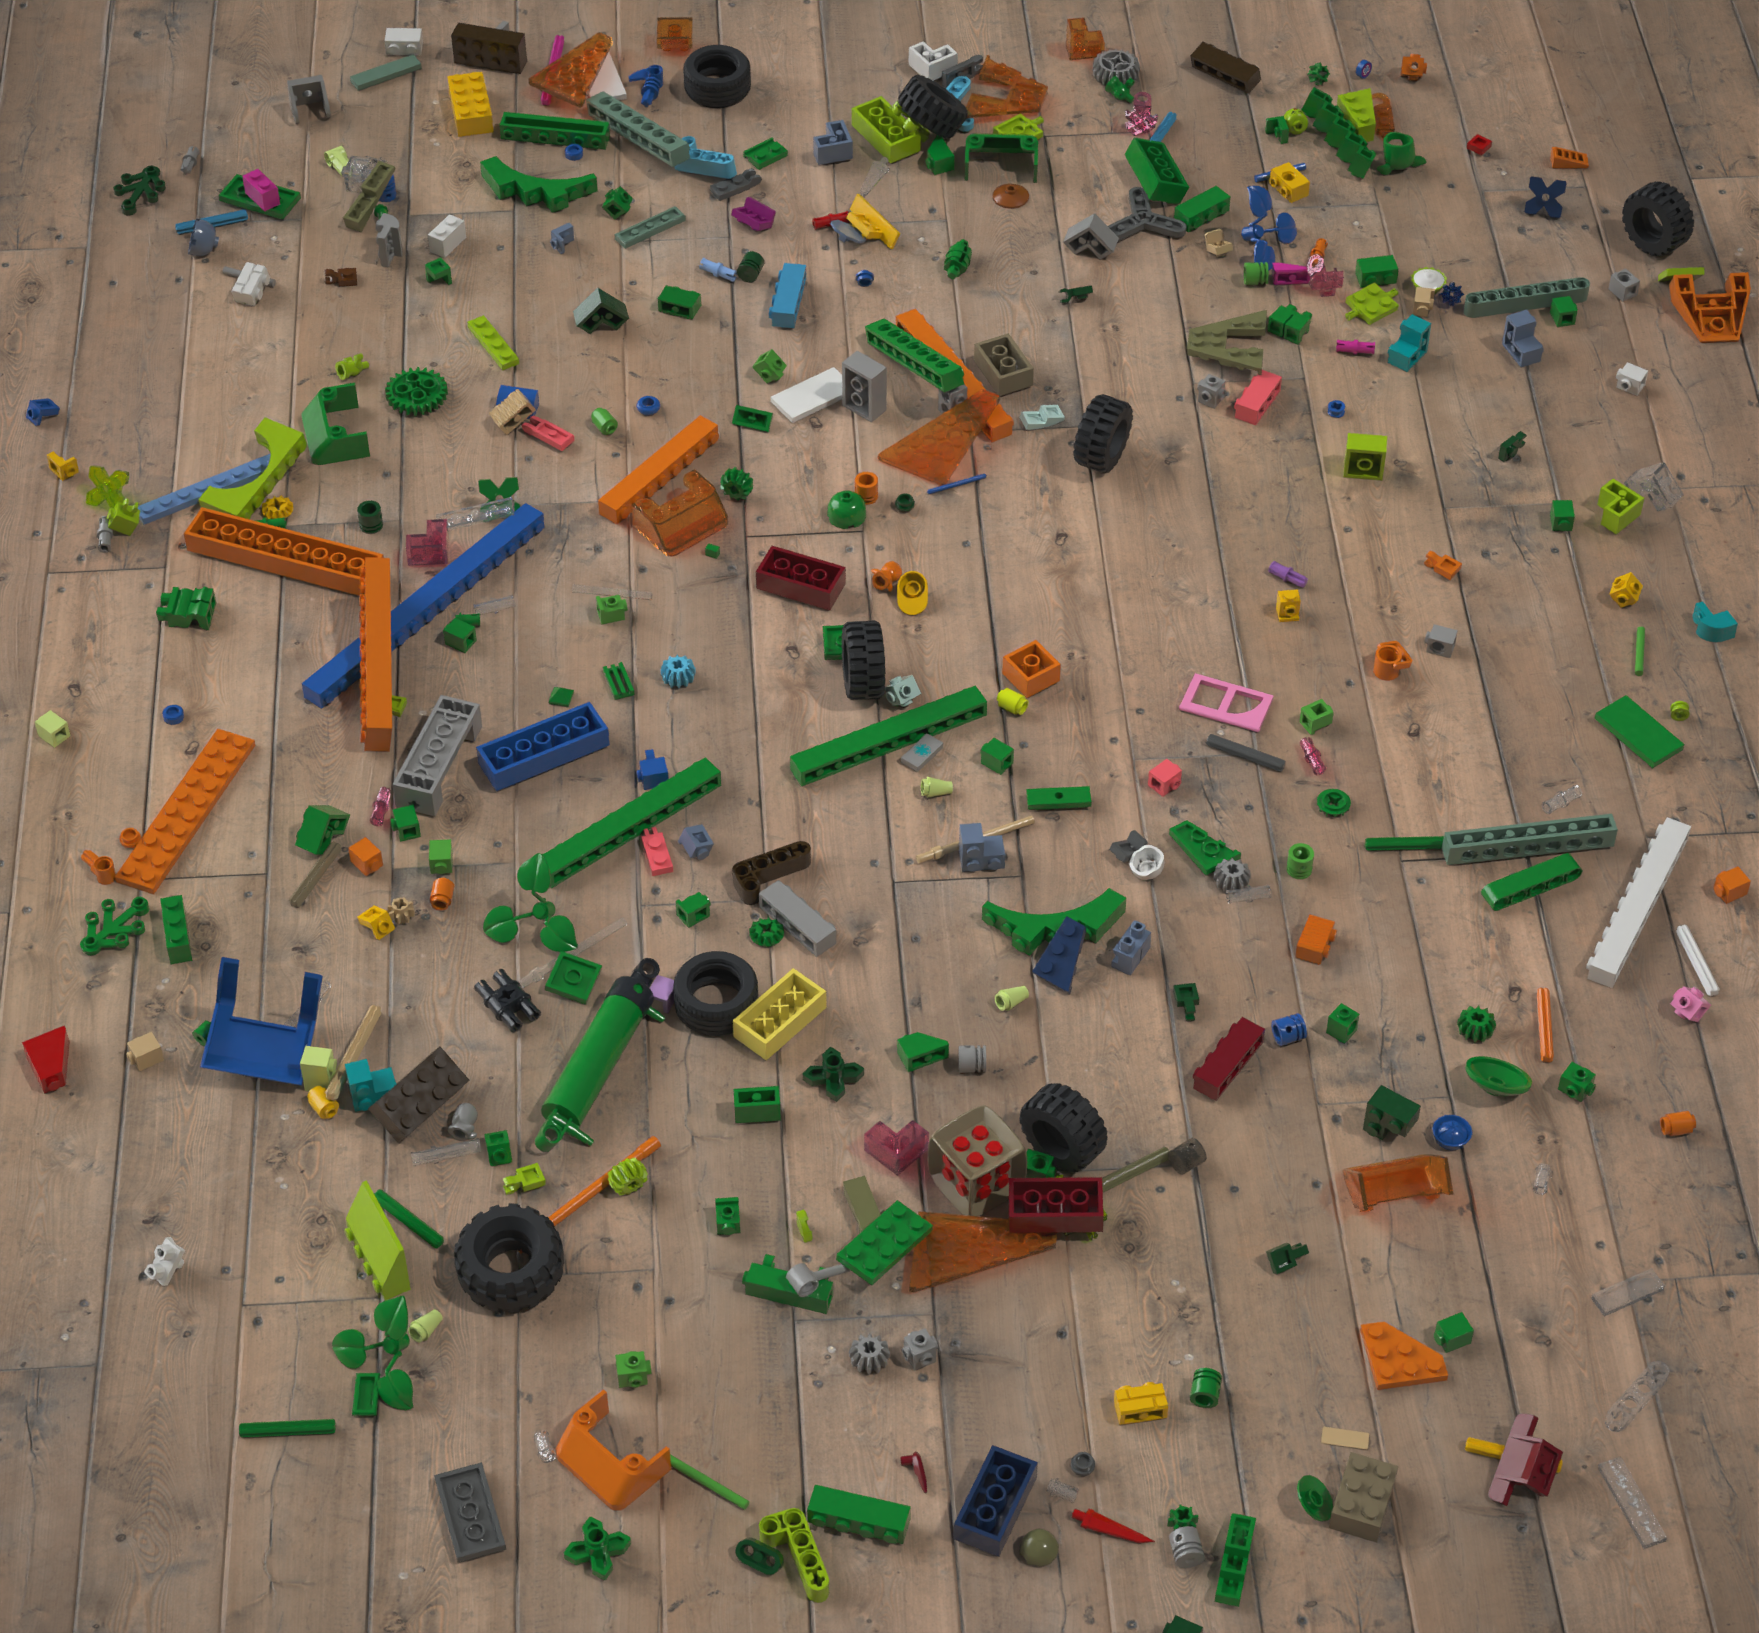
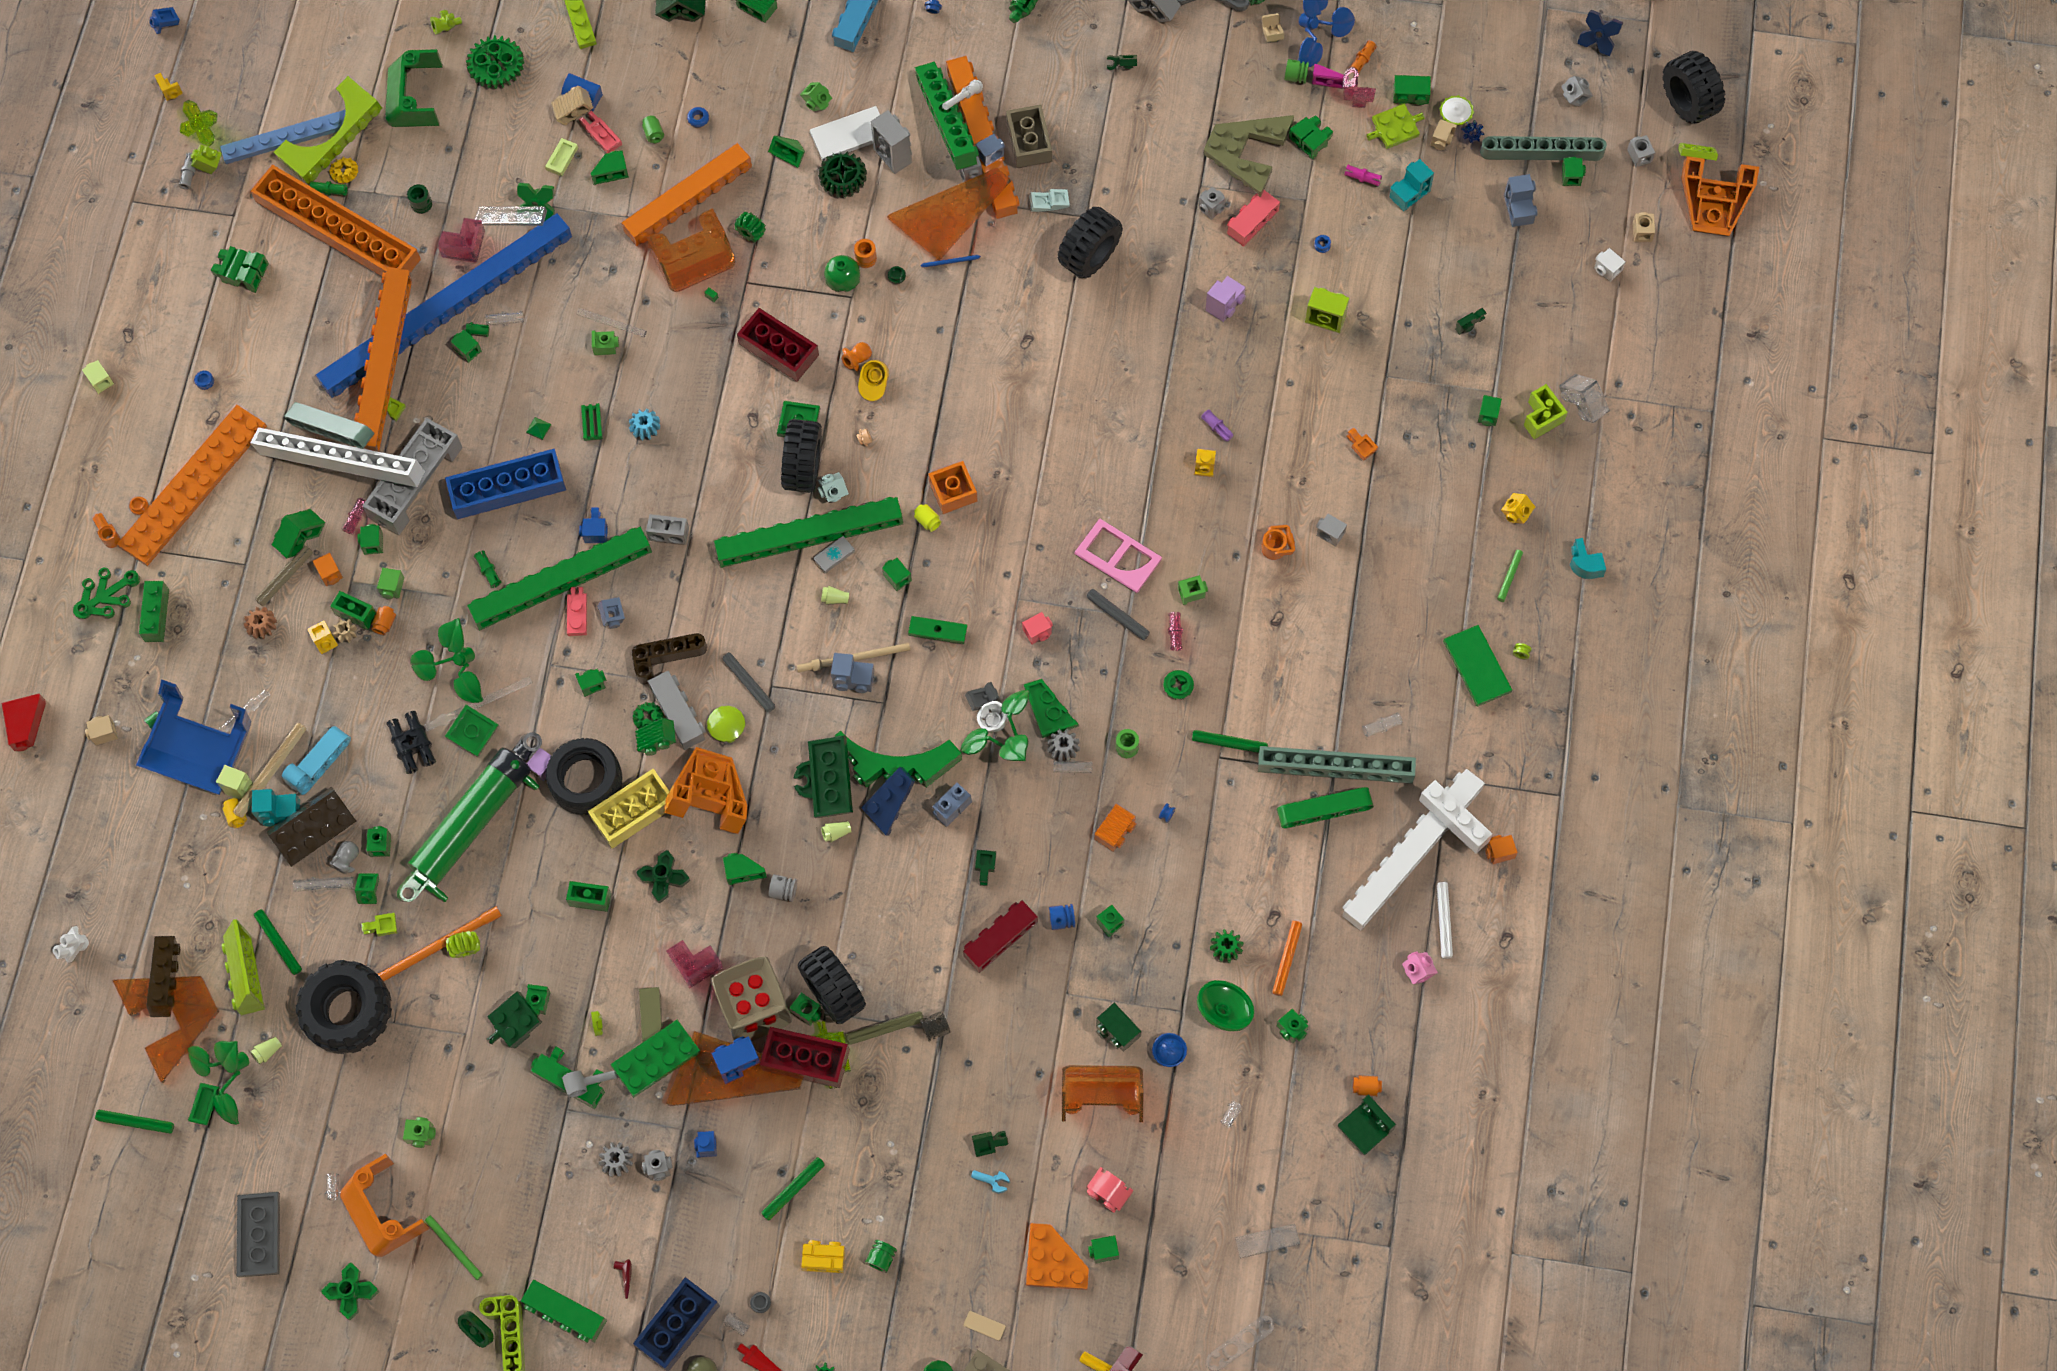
camera: 15 degrees right, 20 degrees up
(285, 1269) = (162, 976): none -> dark brown brick
(301, 919) = (264, 616): none -> nougat gear
(318, 1295) = (192, 1009): none -> clear orange wing
(334, 718) = (329, 425): none -> beam
(352, 744) = (338, 457): none -> white brick
(399, 1045) = (317, 761): none -> medium azure beam
(411, 885) = (353, 609): none -> green brick
(499, 1100) = (378, 842): none -> green brick
(512, 460) = (561, 157): none -> yellowish green tile
(544, 828) = (487, 569): none -> green pin
(570, 460) = (610, 168): none -> green slope
(709, 1239) = (513, 1021): none -> dark green plate
(735, 756) = (667, 529): none -> light grey brick
(784, 942) = (655, 736): none -> green brick
(818, 427) = (832, 172): none -> dark green gear
(855, 923) = (726, 724): none -> lime dish
(863, 978) = (712, 785): none -> orange wedge
(868, 881) = (748, 682): none -> dark grey axle
(919, 644) = (864, 437): none -> light nougat plate
(934, 330) = (974, 87): none -> white pin
(968, 1318) = (705, 1144): none -> blue brick
(973, 376) = (990, 149): none -> sand blue brick
(976, 1219) = (735, 1058): none -> blue brick
(986, 947) = (827, 777): none -> dark green plate
(1081, 1345) = (793, 1188): none -> green axle
(1179, 882) = (1014, 747): none -> green plant
(1255, 466) = (1224, 298): none -> lavender brick
(1305, 1293) = (992, 1180): none -> medium azure bar
(1365, 916) = (1167, 812): none -> blue bush
(1438, 1270) = (1109, 1189): none -> coral brick
(1541, 246) = (1576, 91): none -> light grey brick
(1653, 344) = (1640, 233): none -> tan brick
(1675, 856) = (1455, 816): none -> white brick
(1694, 1157) = (1367, 1125): none -> dark green bracket

